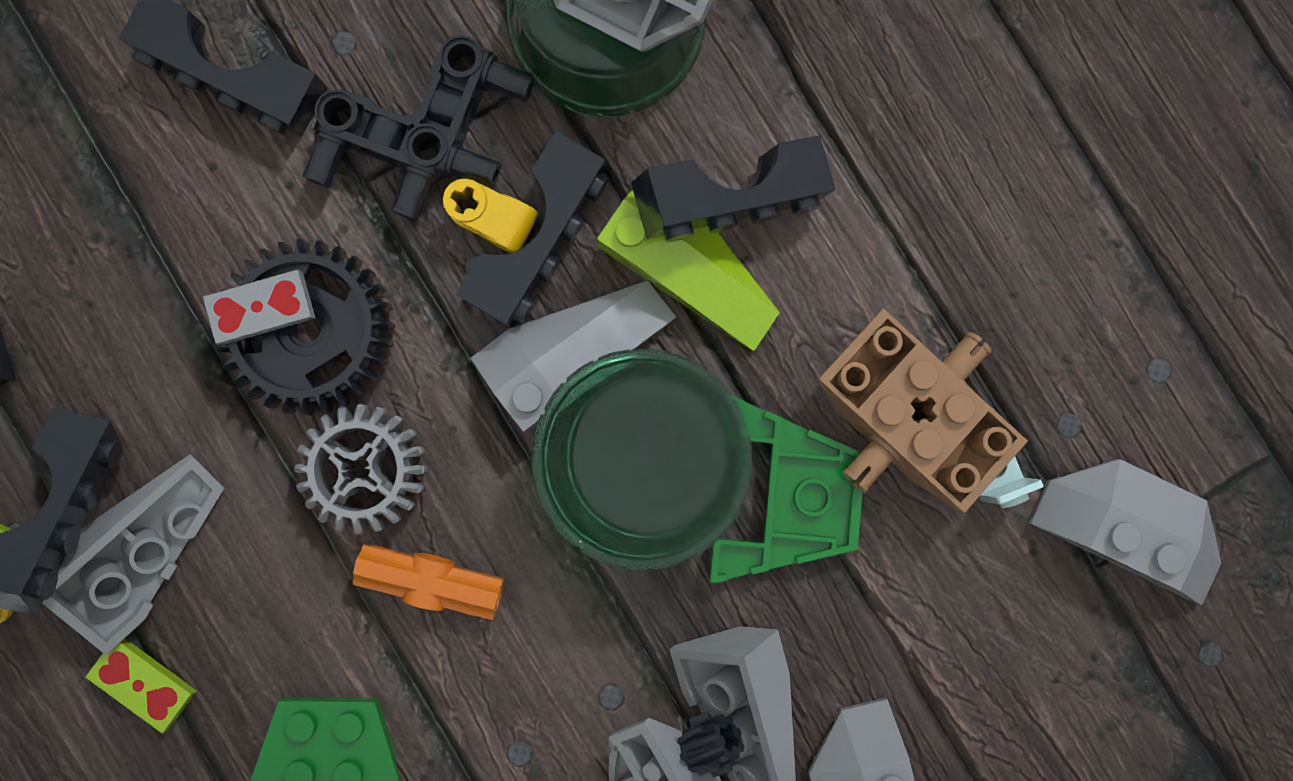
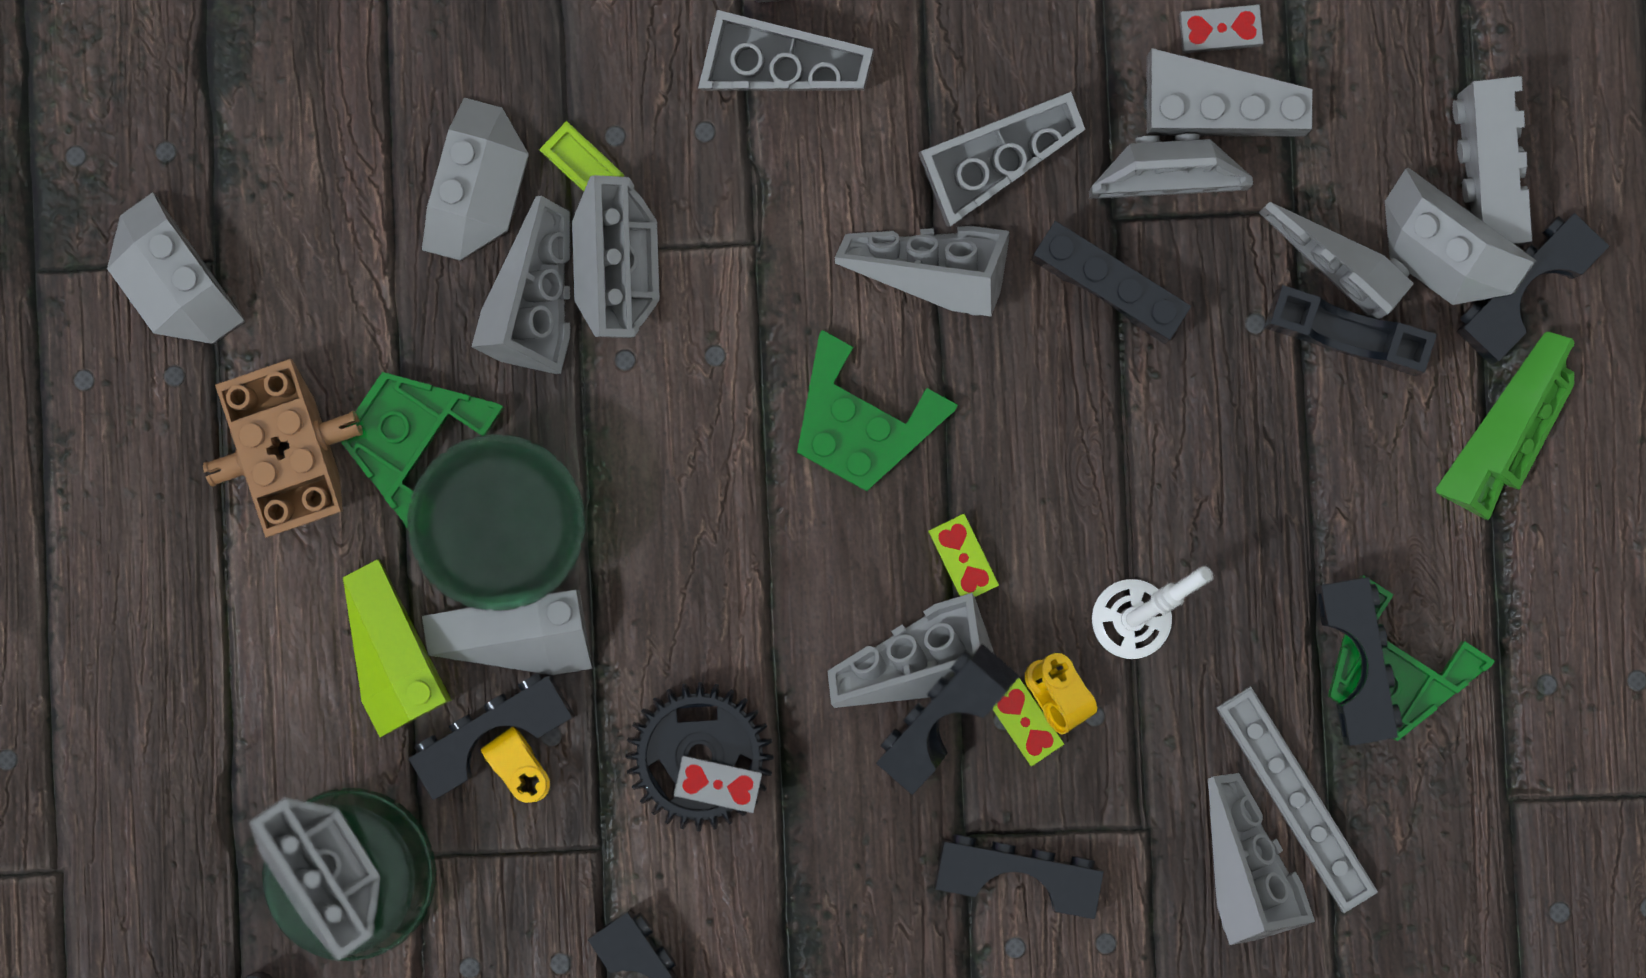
camera: 145 degrees left, 0 degrees up
(347, 483) = (683, 643): light grey gear -> none
(428, 581) = (709, 518): orange piece -> none
(441, 118) = (556, 863): black pin -> none
(682, 198) = (365, 695): black arch -> none
(710, 744) = (563, 292): black gear -> none
(1010, 487) = (244, 356): light aqua bracket -> none

